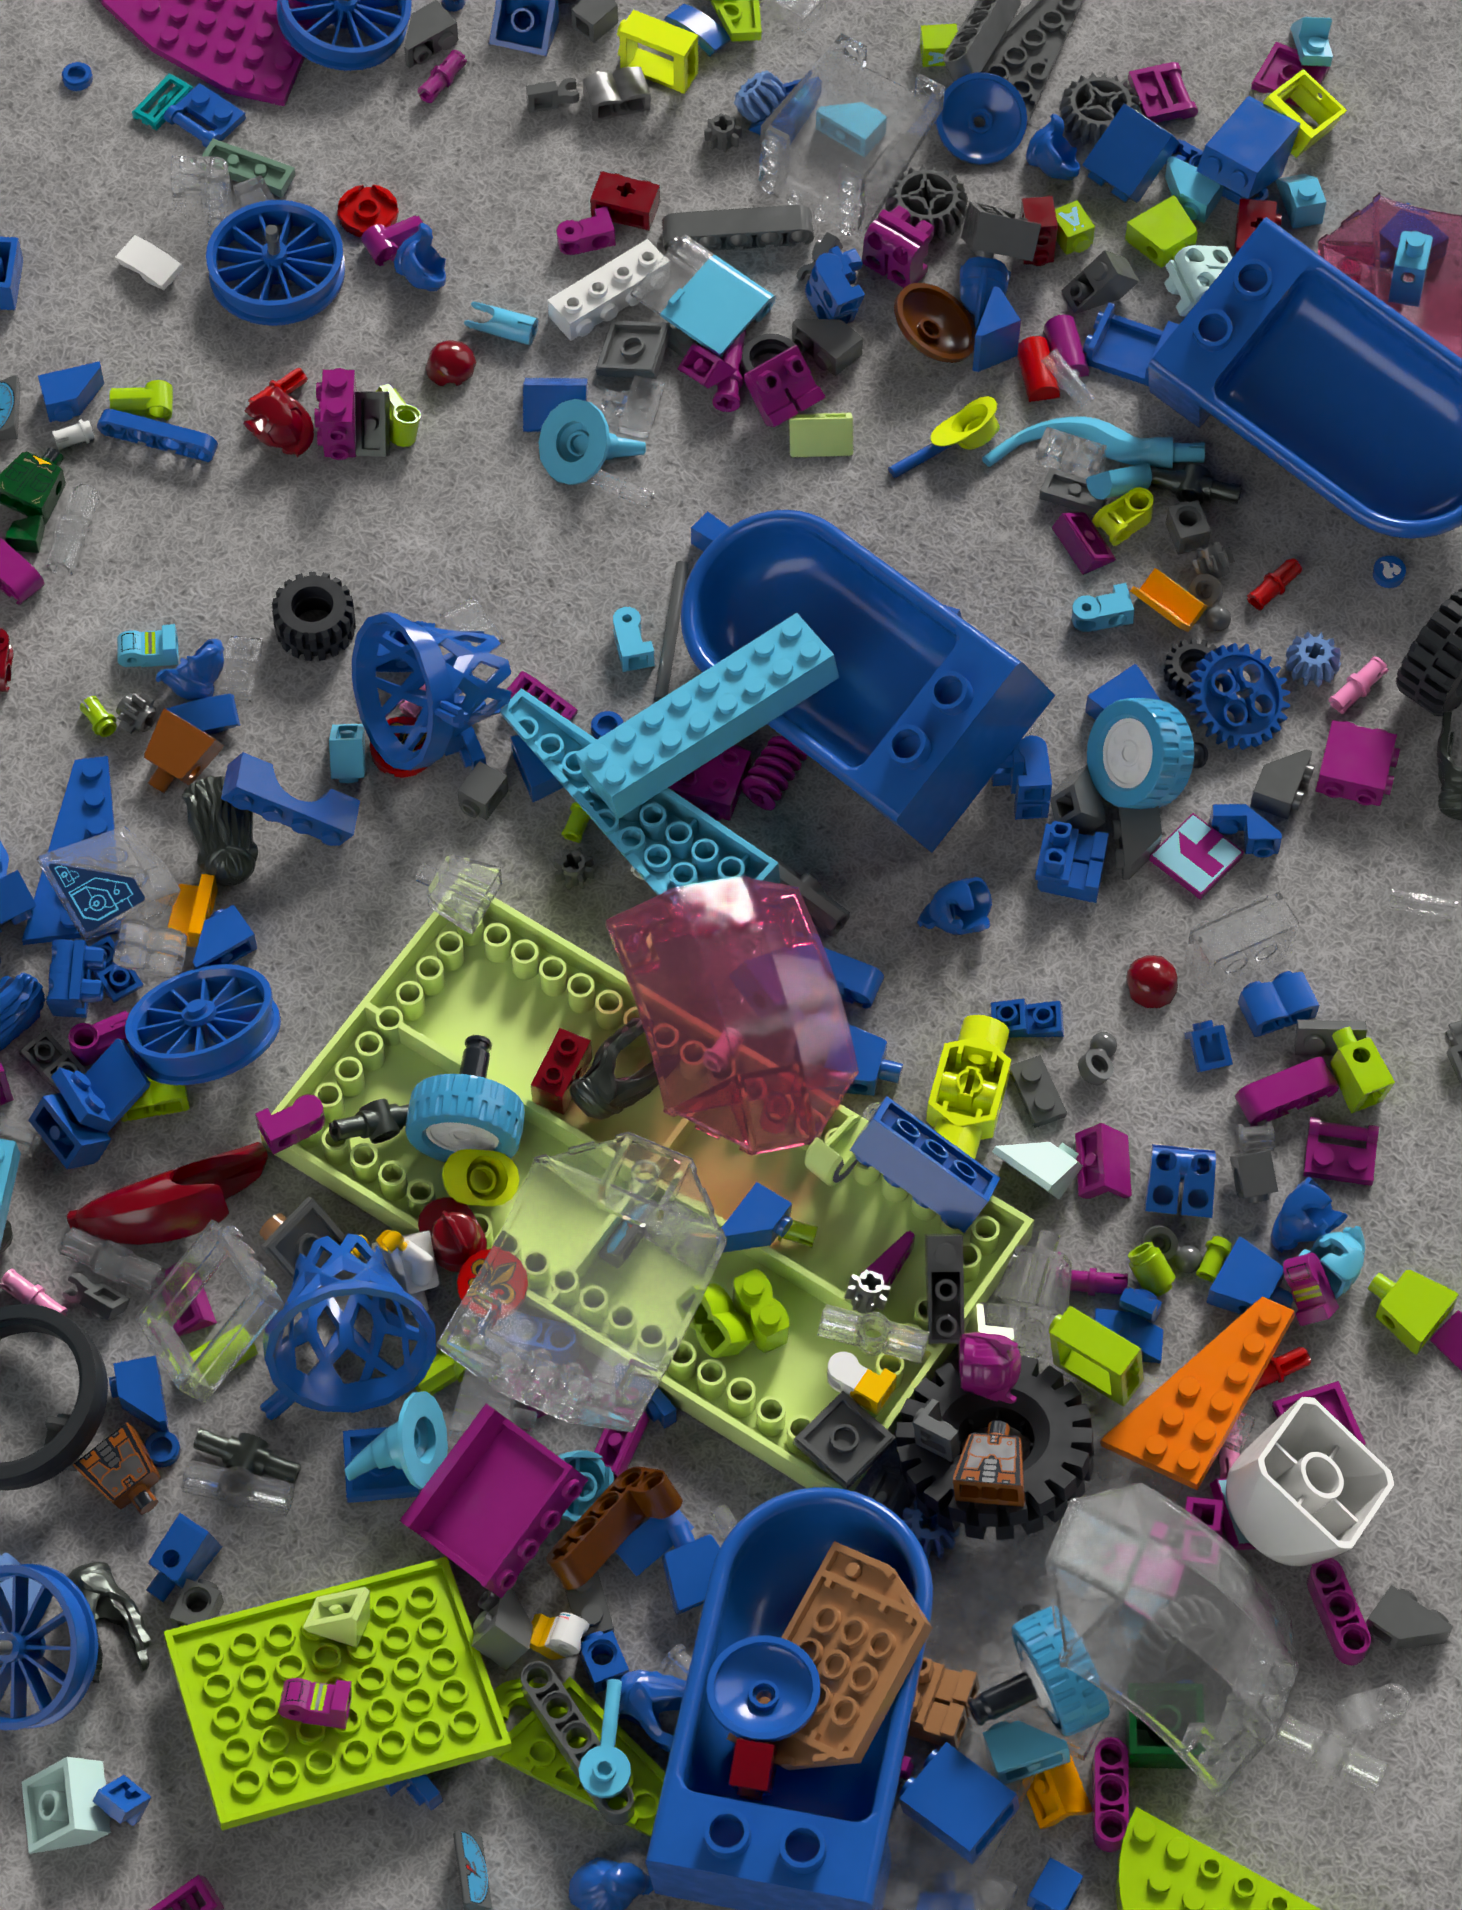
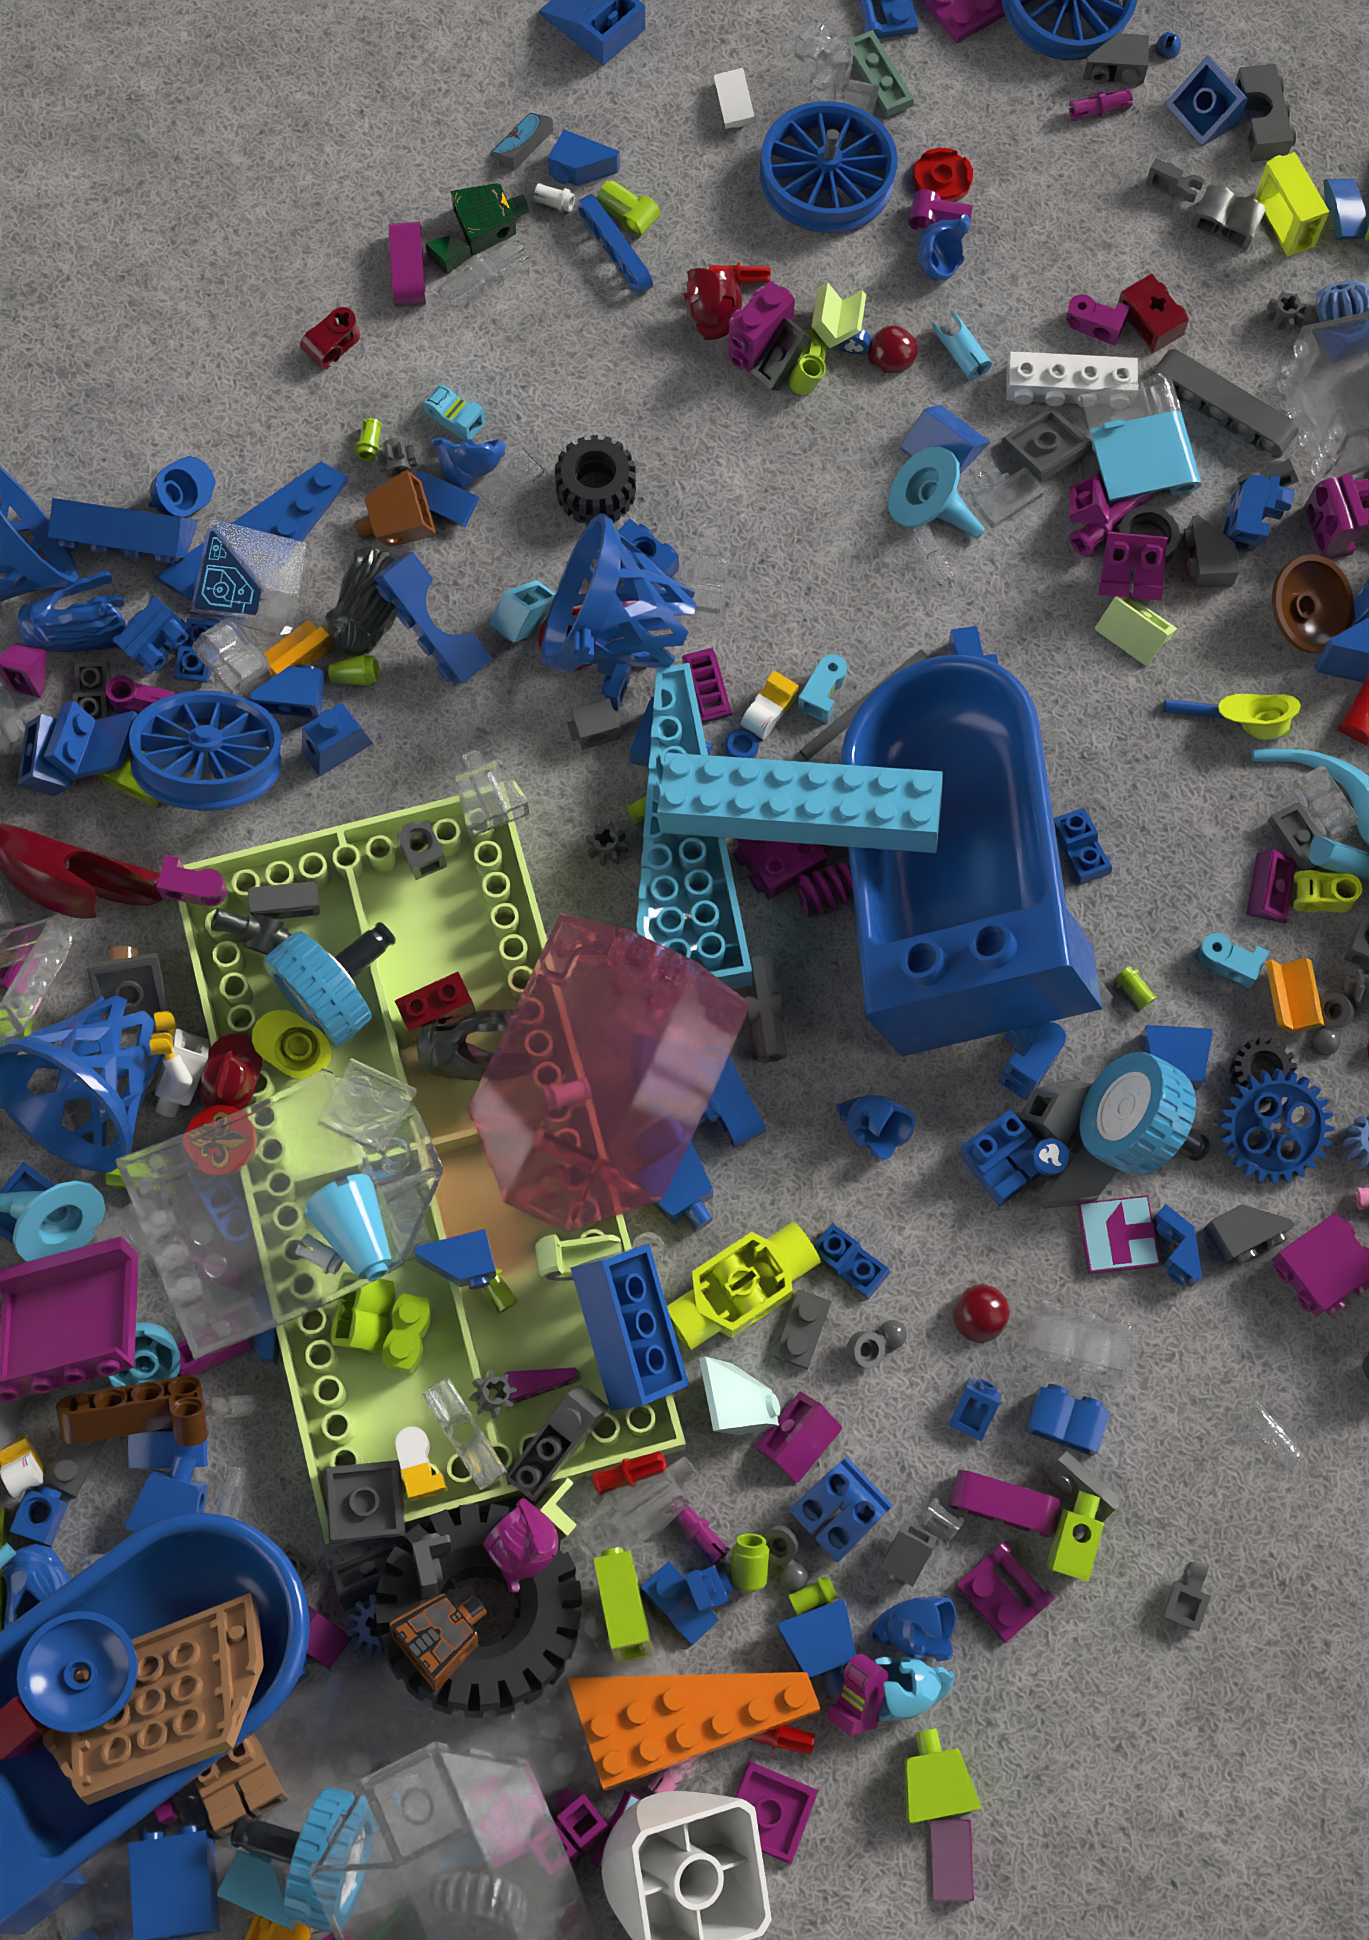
camera: 40 degrees right, 10 degrees up
(255, 891) = (358, 670): none -> lime cone
(292, 941) = (333, 739): none -> blue torso
(371, 1084) = (285, 900): none -> dark grey slope
(393, 365) = (837, 318): none -> yellowish green panel
(416, 376) = (856, 344): none -> blue tile
(450, 977) = (422, 862): none -> dark grey brick
(597, 1153) = (367, 1106): none -> clear plate
(602, 680) = (770, 705): none -> leg
(656, 1288) = (321, 1255): none -> white pin
(665, 1243) = (352, 1225): none -> medium azure cone
(680, 1463) = (235, 1406): none -> clear axle
(1014, 1268) = (629, 1472): none -> red axle
(1055, 680) = (1135, 987): none -> lime pin
(1105, 832) = (1050, 1157): none -> blue tile

